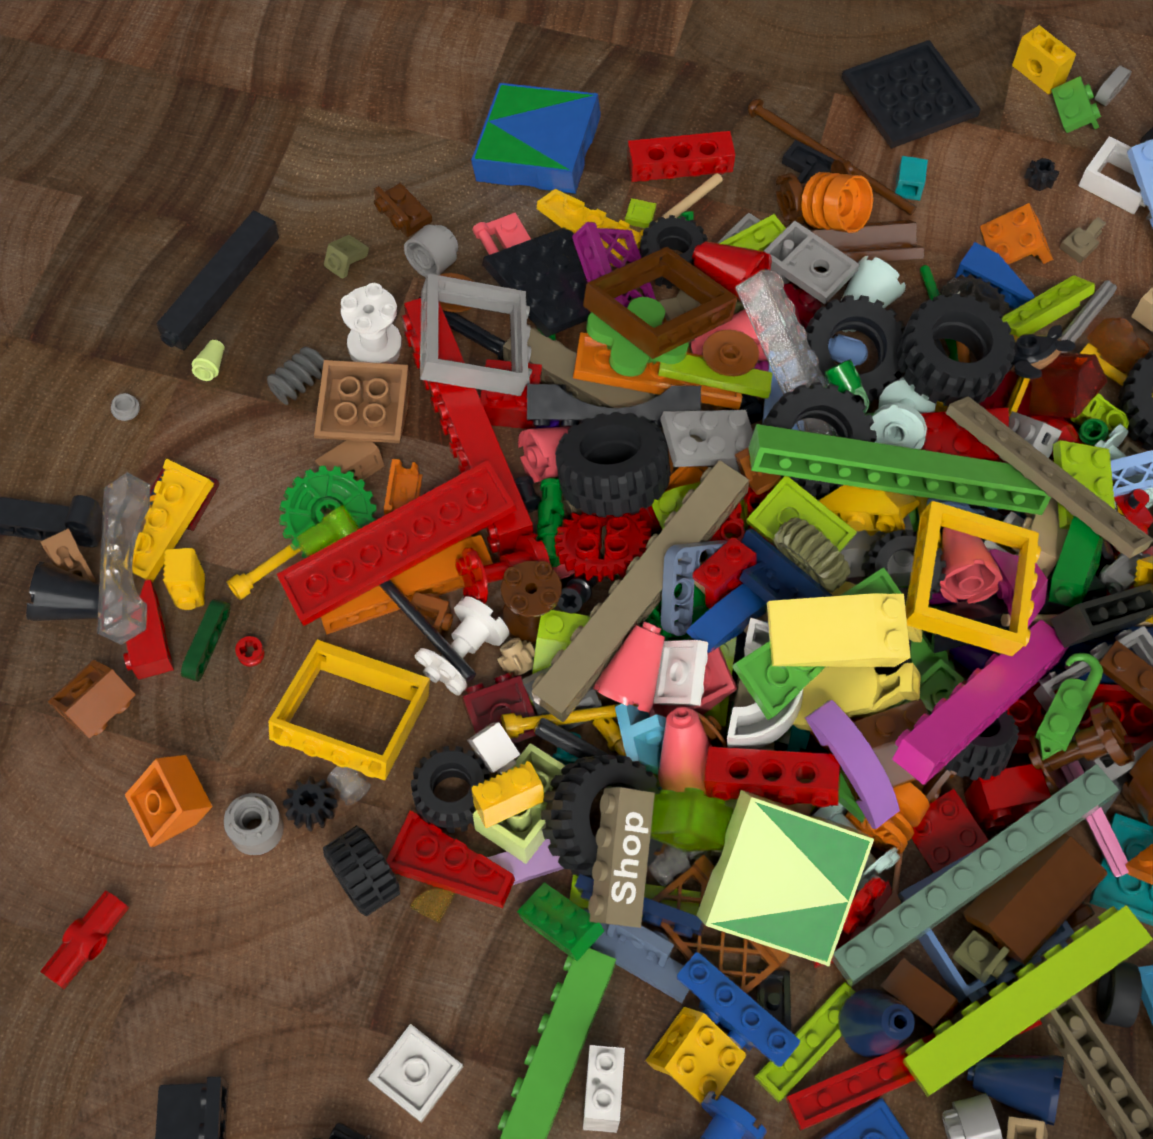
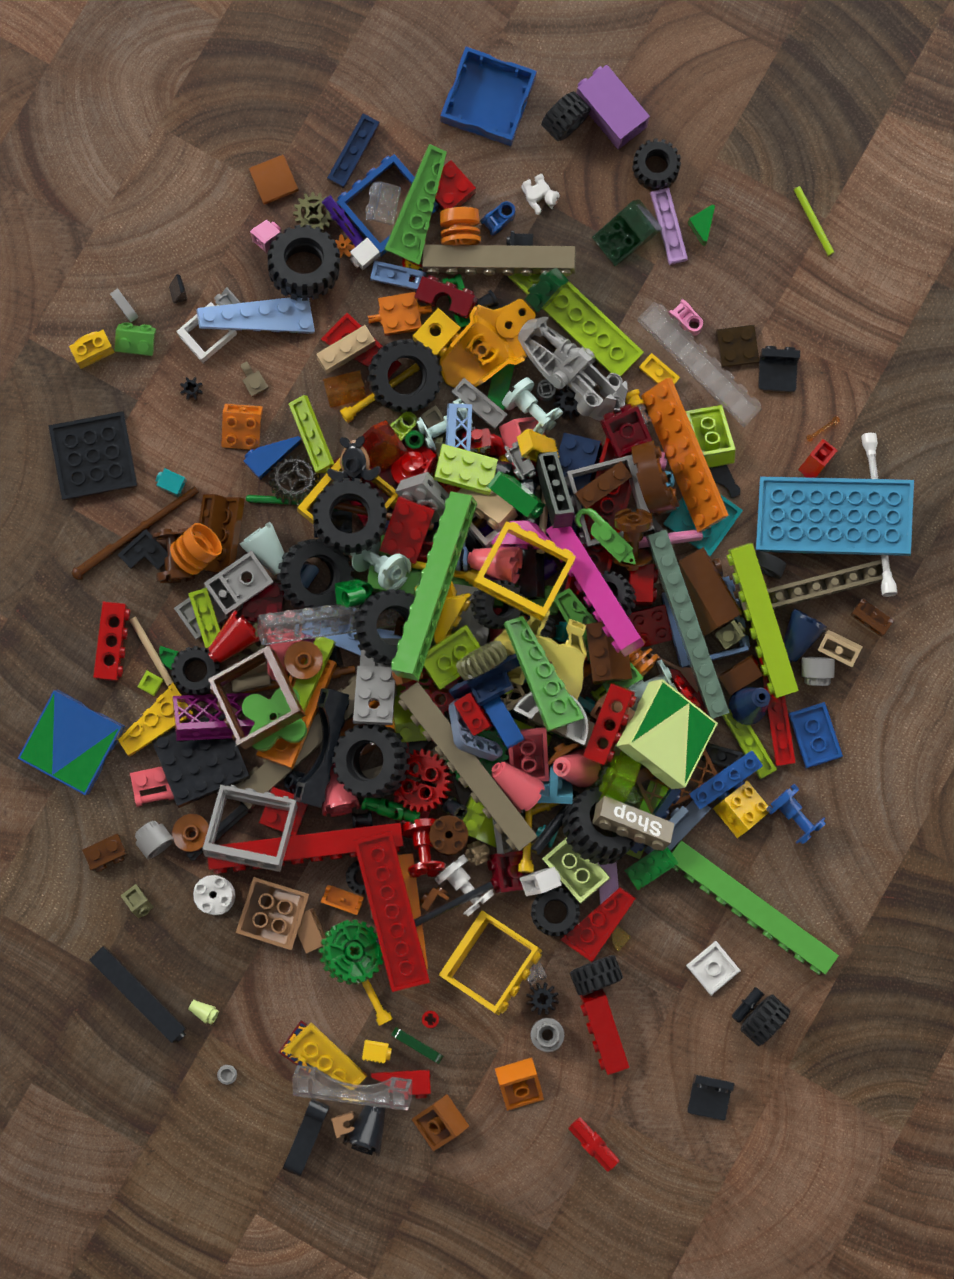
camera: 80 degrees left, 20 degrees up
(272, 909) = (605, 1032): none -> red wedge
(295, 374) = (233, 952): dark grey piece -> none
(331, 529) = (369, 948): clear neon green piece -> none
(507, 794) = (577, 879): yellow brick -> none
(603, 1088) = (760, 868): white window -> none
(681, 673) = (530, 758): white plate -> none
(839, 631) = (543, 663): light yellow slope -> none
(857, 760) = (615, 676): medium lavender slope -> none
(1049, 477) = (461, 497): dark tan plate -> none
(1089, 312) = (319, 408): light grey axle -> none

